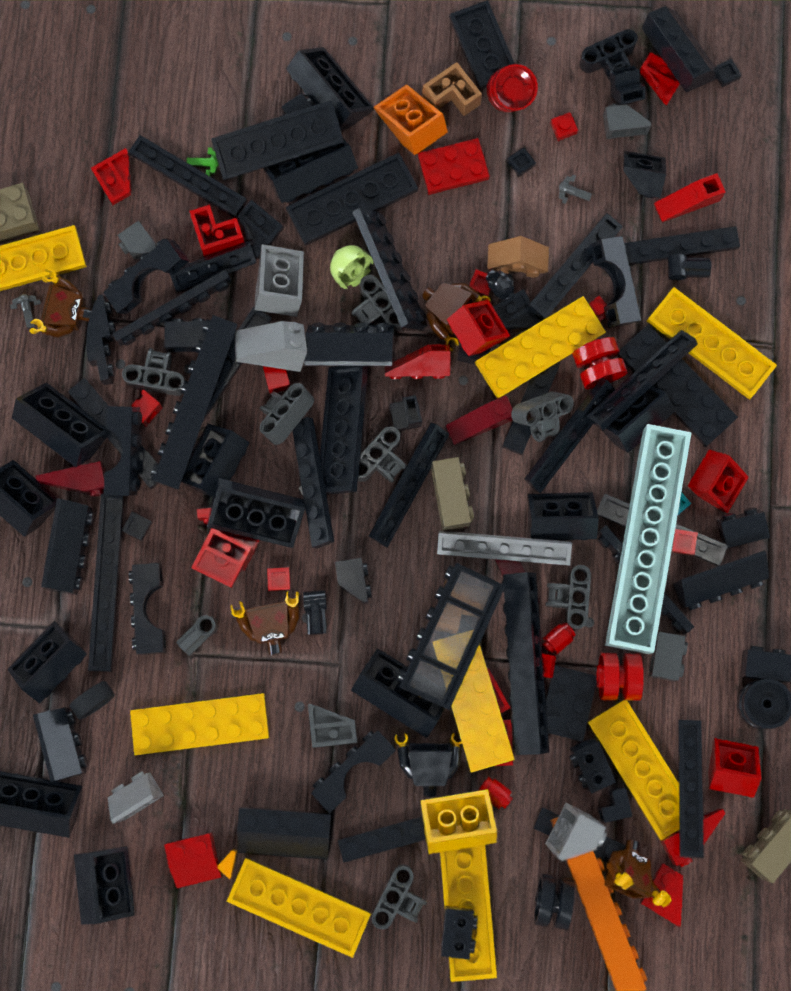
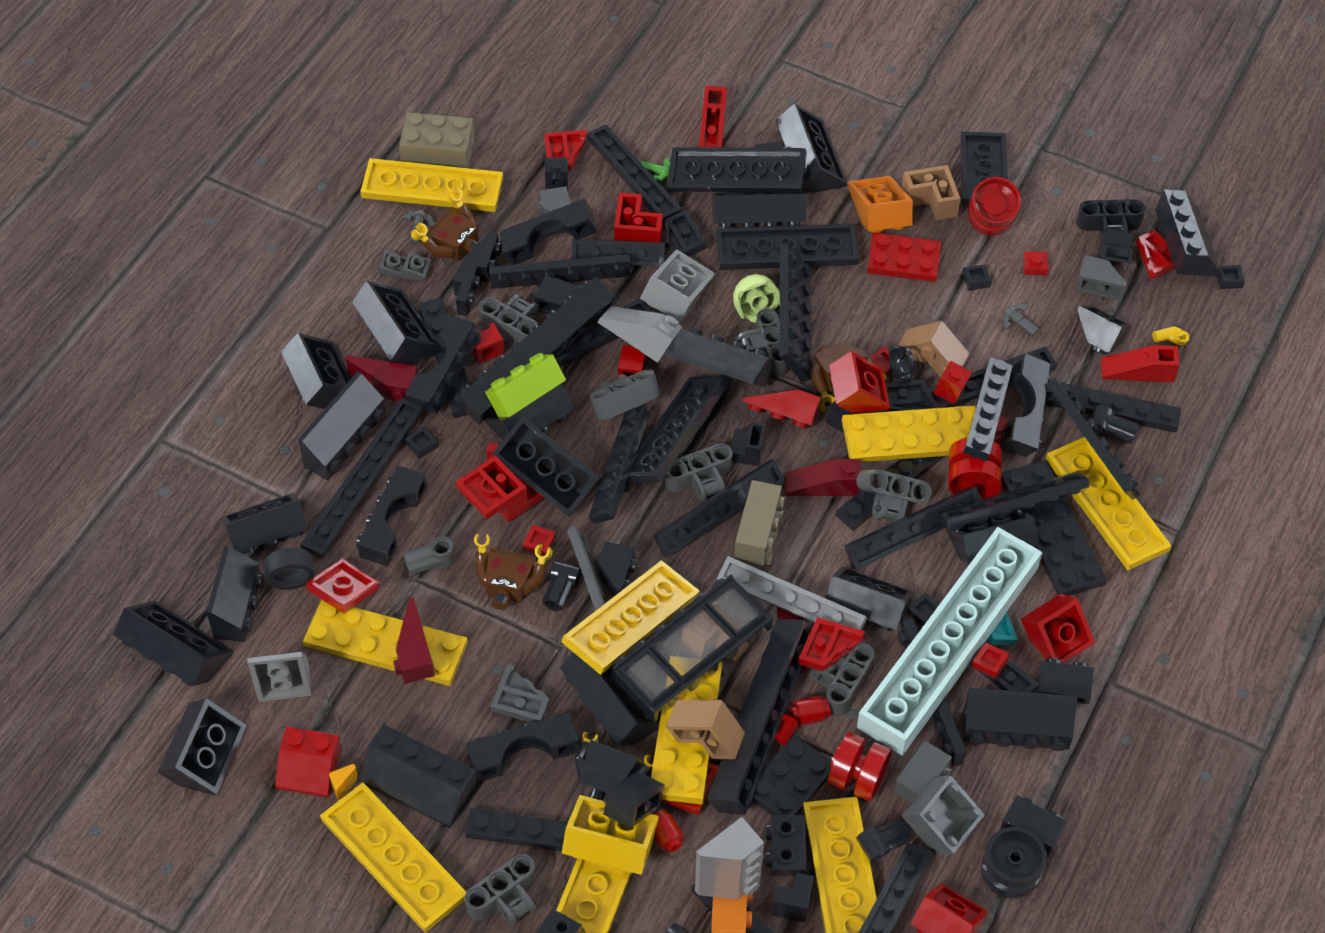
camera: 25 degrees right, 25 degrees down
(36, 357) = (410, 267): none -> dark grey slope
(122, 208) = (556, 173): none -> black brick
(141, 692) = (342, 585): none -> red plate
(203, 447) = (525, 385): none -> lime brick
(229, 731) = (412, 648): none -> dark red slope
(231, 91) = (713, 117): none -> red slope
(334, 593) = (588, 567): none -> dark grey tile
(388, 625) = (630, 617): none -> yellow plate
(465, 790) = (633, 799): none -> black brick
(497, 702) = (708, 724): none -> medium nougat brick
(552, 290) = (952, 382): none -> red brick
(552, 580) = (828, 643): none -> red wing
(592, 307) = (987, 409): none -> plate
(660, 731) = (880, 841): none -> black piece
(689, 297) = (1099, 444): none -> black plate
(699, 690) = (943, 815): none -> dark grey container
(702, 153) = (1171, 334): none -> yellow arm

